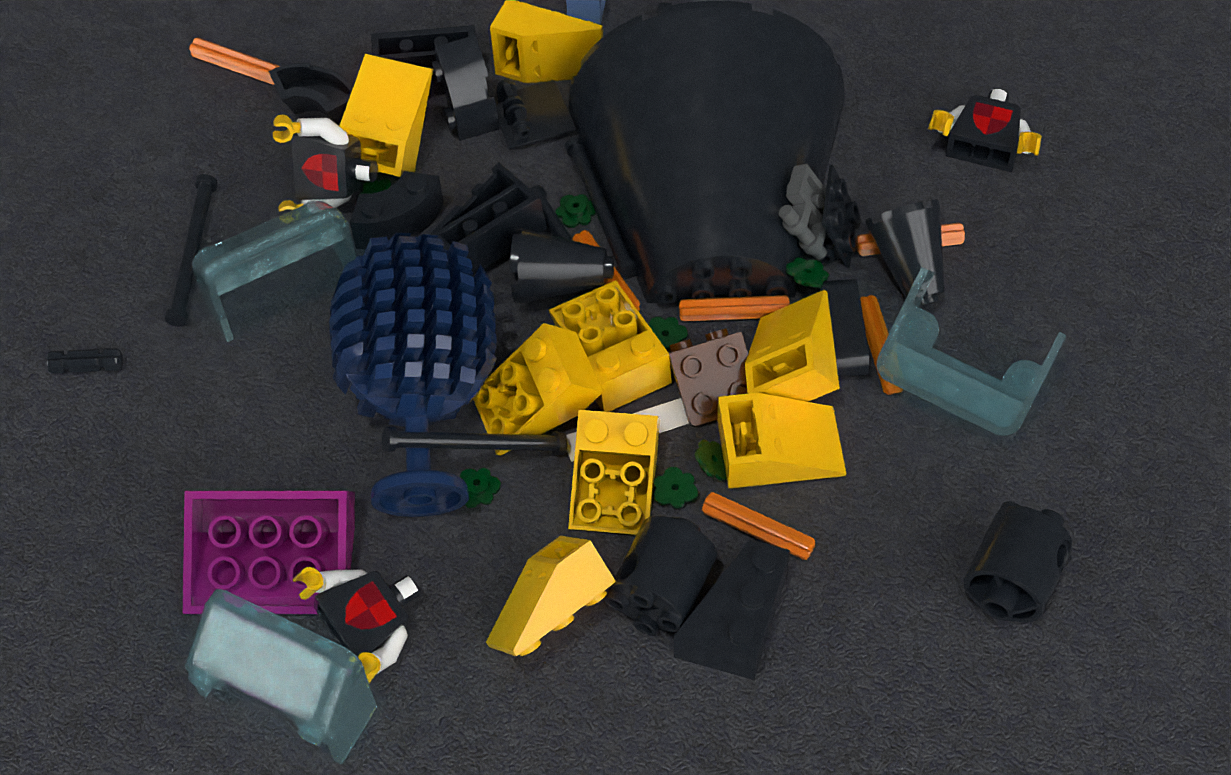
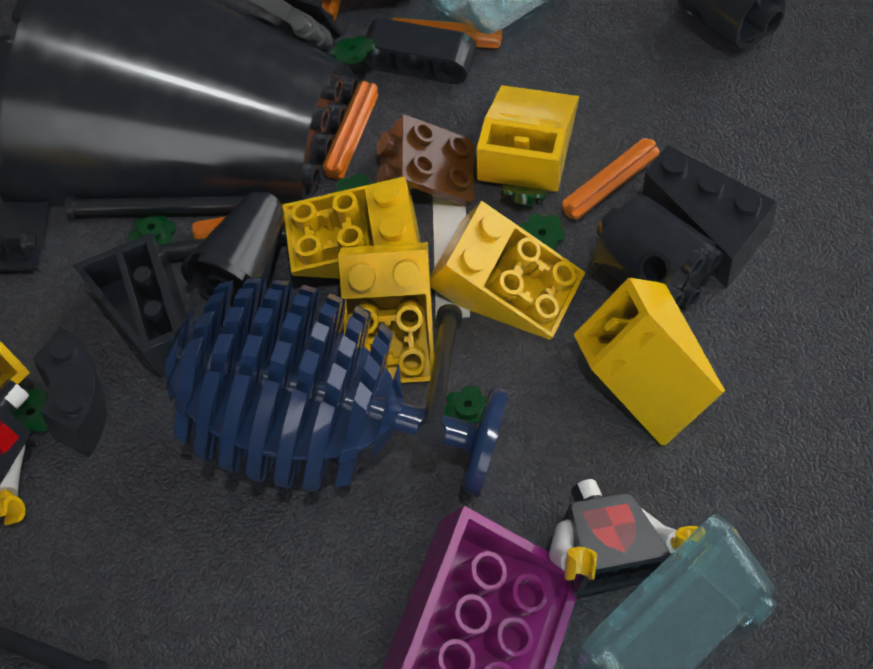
camera: 70 degrees left, 0 degrees up
(268, 249) = (91, 526): clear light blue windscreen -> none
(794, 352) = (437, 83): yellow slope -> none

